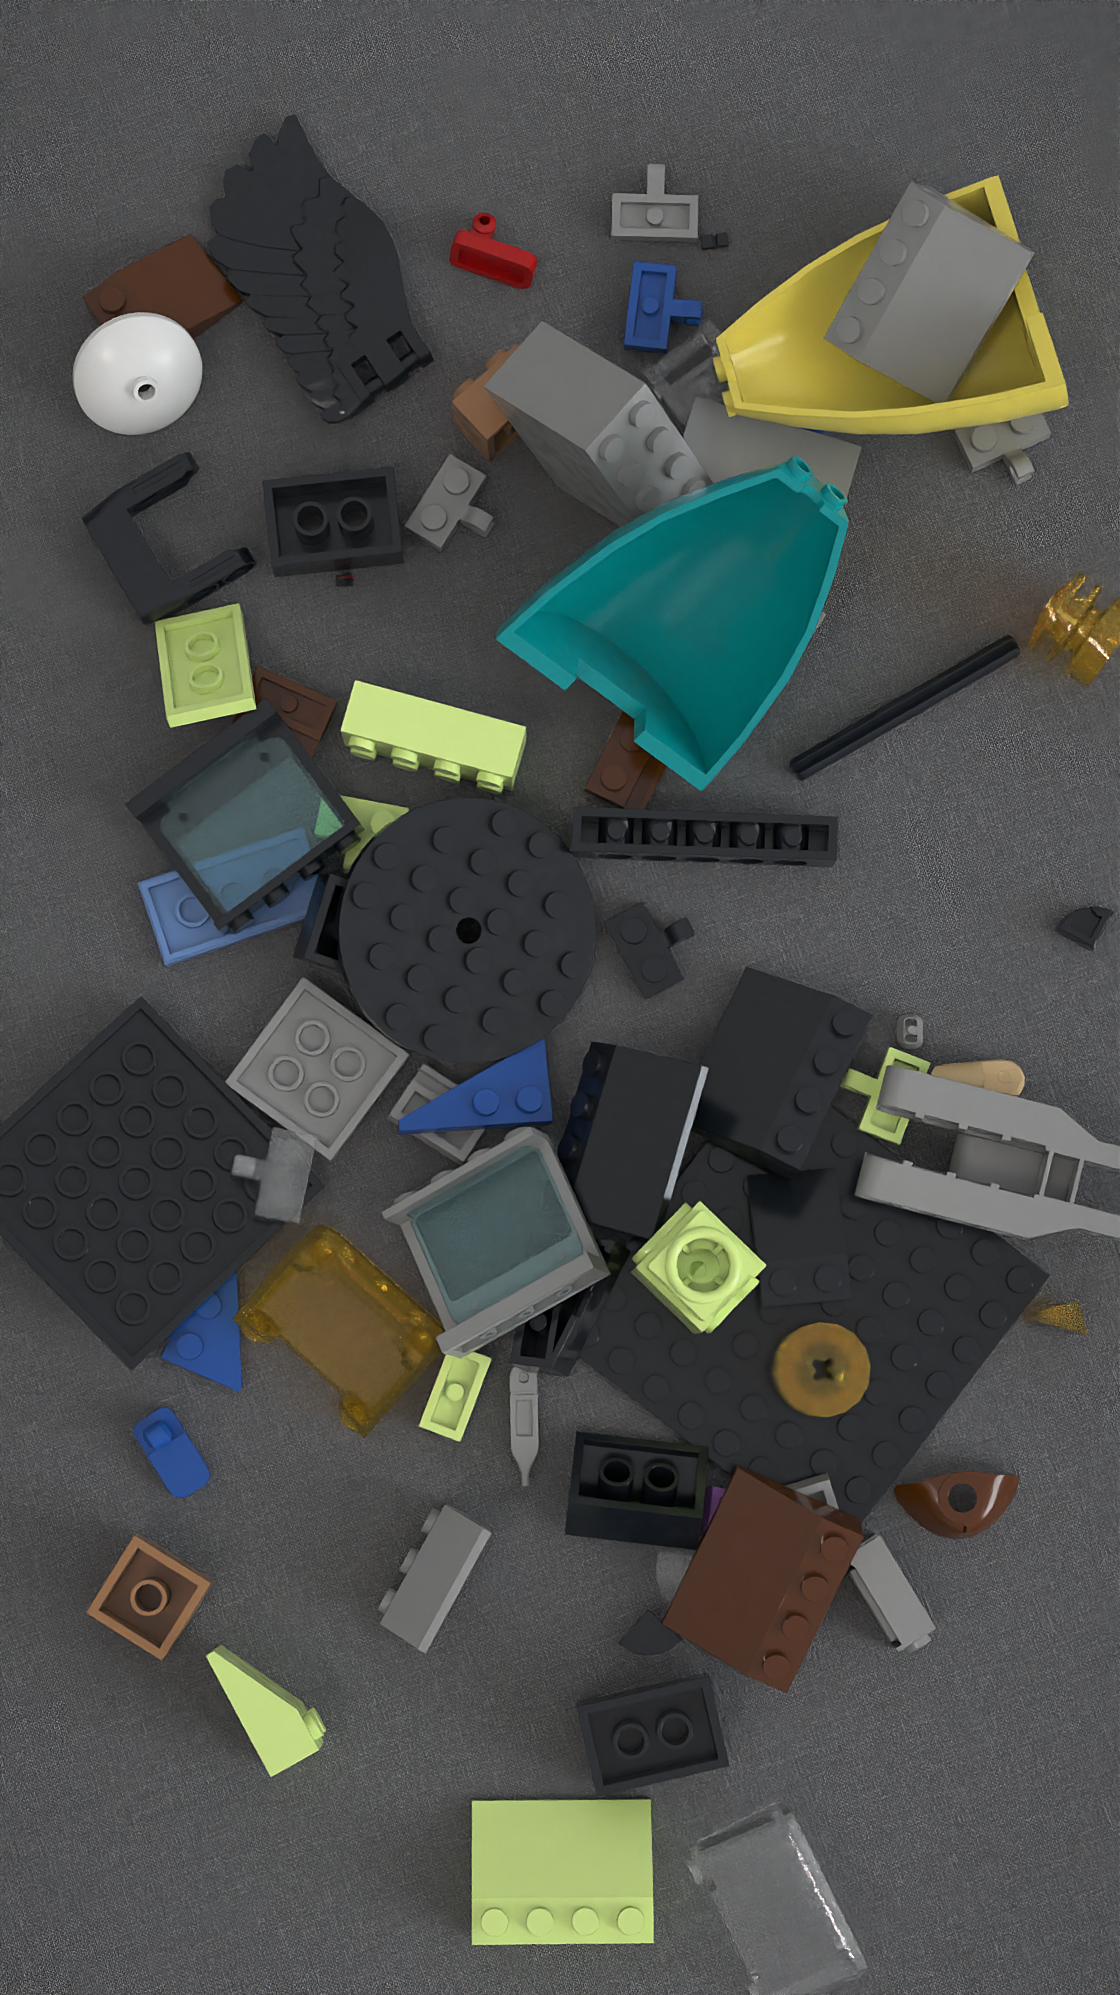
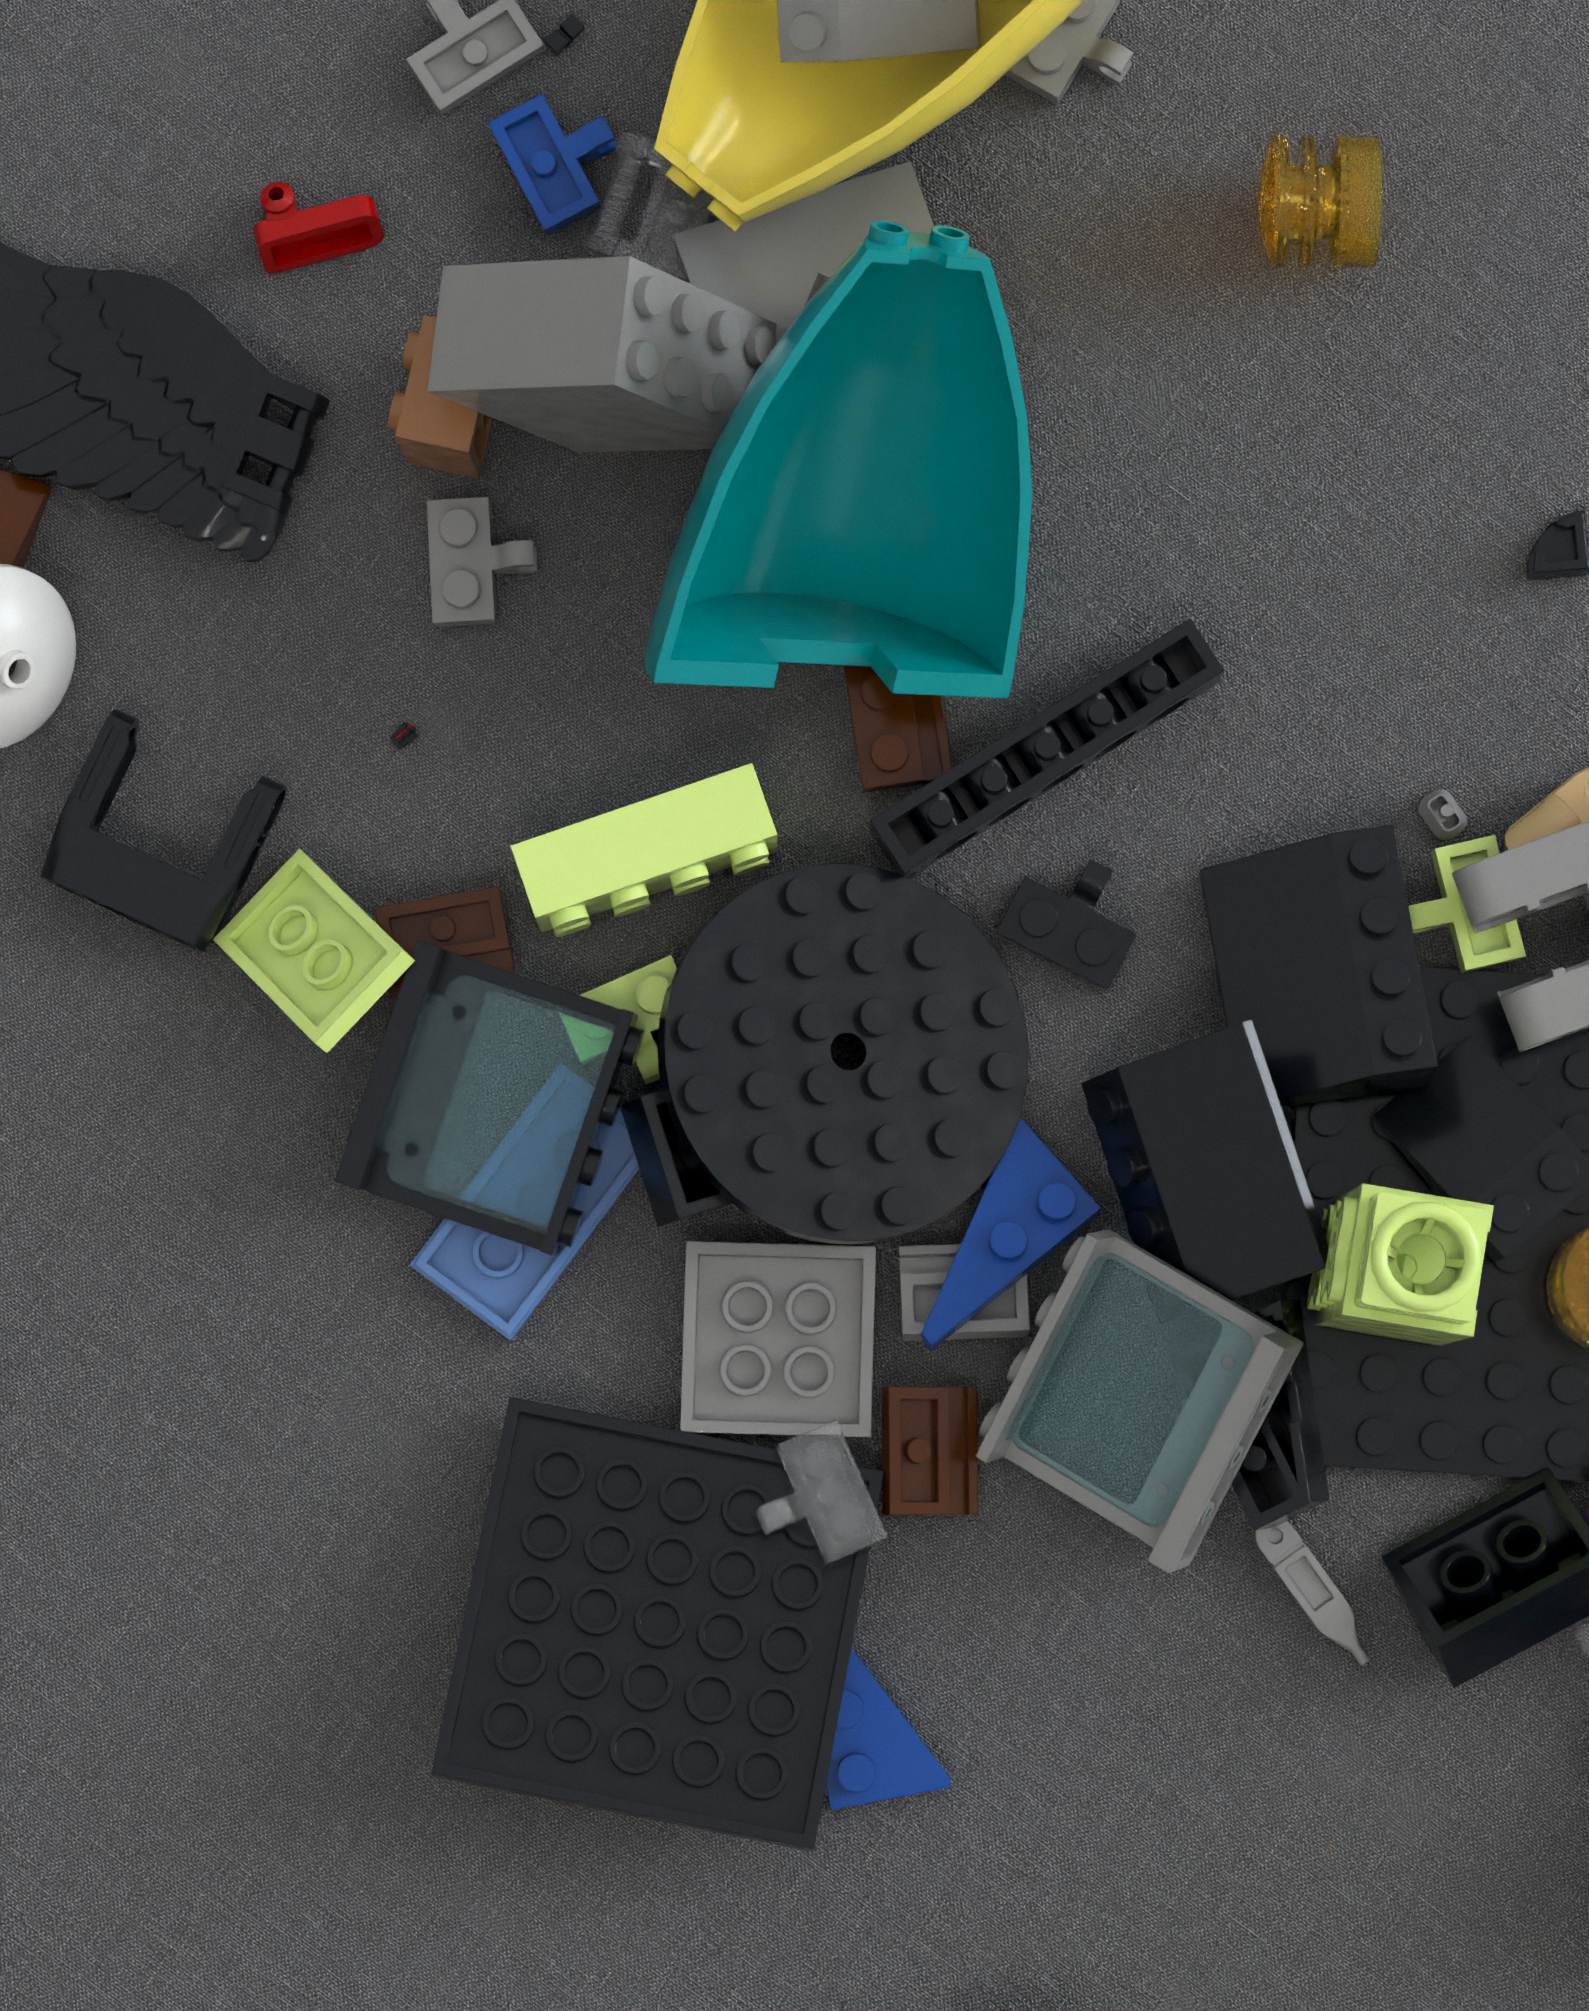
camera: 30 degrees left, 0 degrees up
(172, 1452) = (922, 1913): blue piece -> none
(333, 521) = (347, 674): black brick -> none
(345, 1324) = (1026, 1620): clear yellow windscreen -> none
(359, 1192) = (929, 1450): none -> reddish brown plate
(433, 1576) = (1337, 1844): light grey slope -> none
(455, 1394) = (1209, 1613): yellowish green plate -> none
(905, 707) = (1172, 436): black axle -> none

